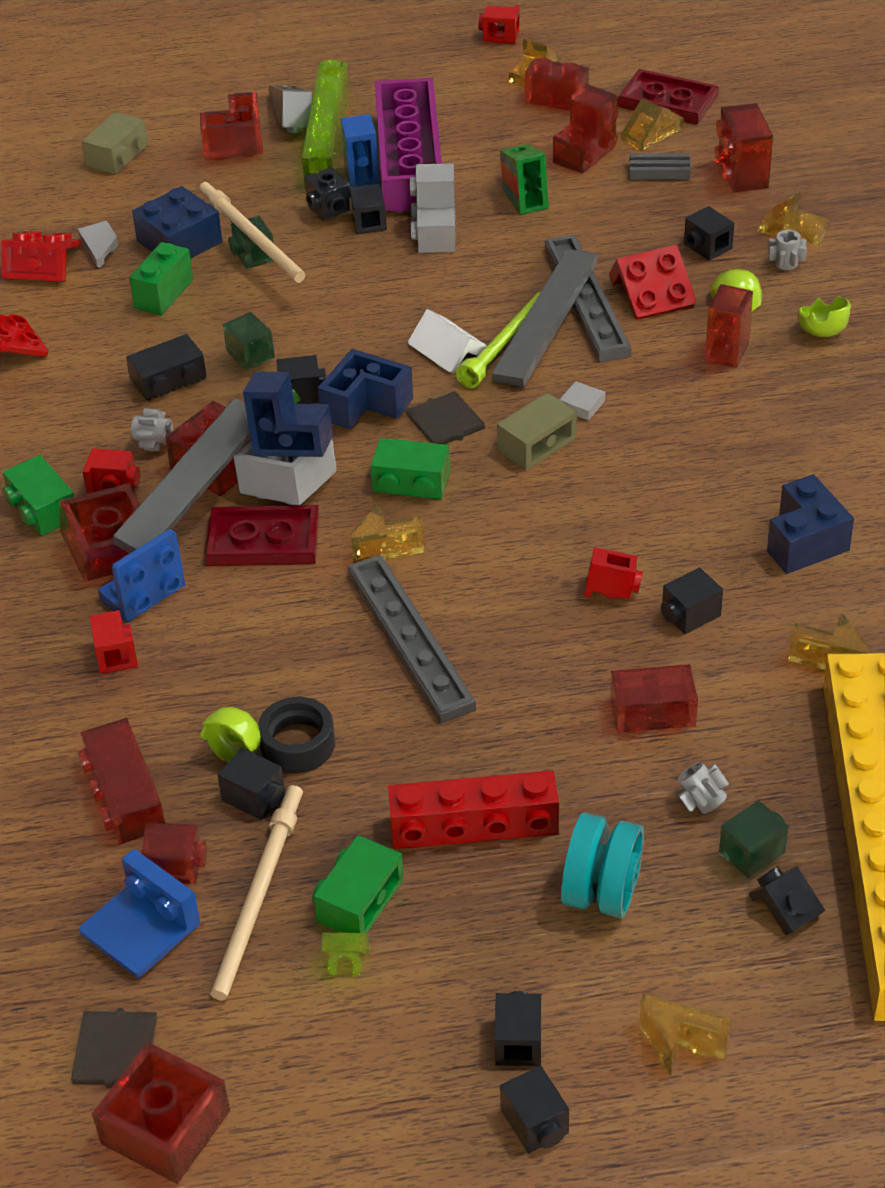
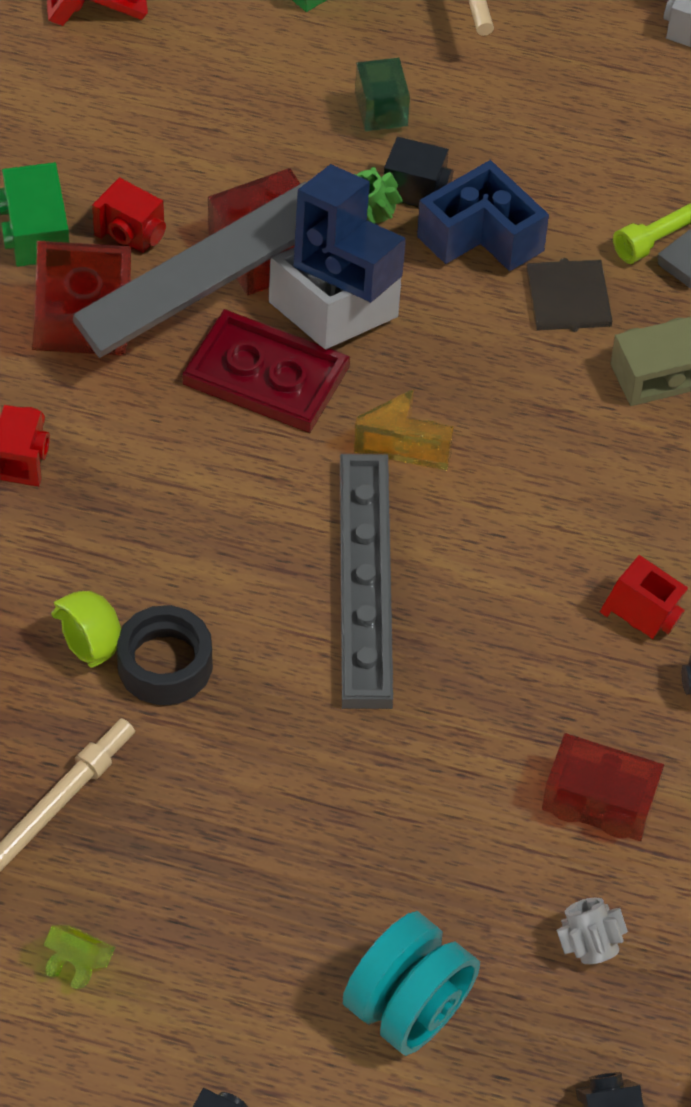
camera: 20 degrees right, 10 degrees up
(145, 577) = (95, 378): blue bracket -> none
(151, 429) = (205, 174): light grey gear -> none
(166, 366) = (269, 92): black brick -> none
(251, 784) = (80, 698): black brick -> none
(358, 886) = (130, 881): green brick -> none
(410, 468) = (484, 351): green brick -> none
(443, 341) = (625, 183): white panel -> none
(474, 809) = (310, 841): red brick -> none
(753, 838) = (614, 1024): clear green brick -> none

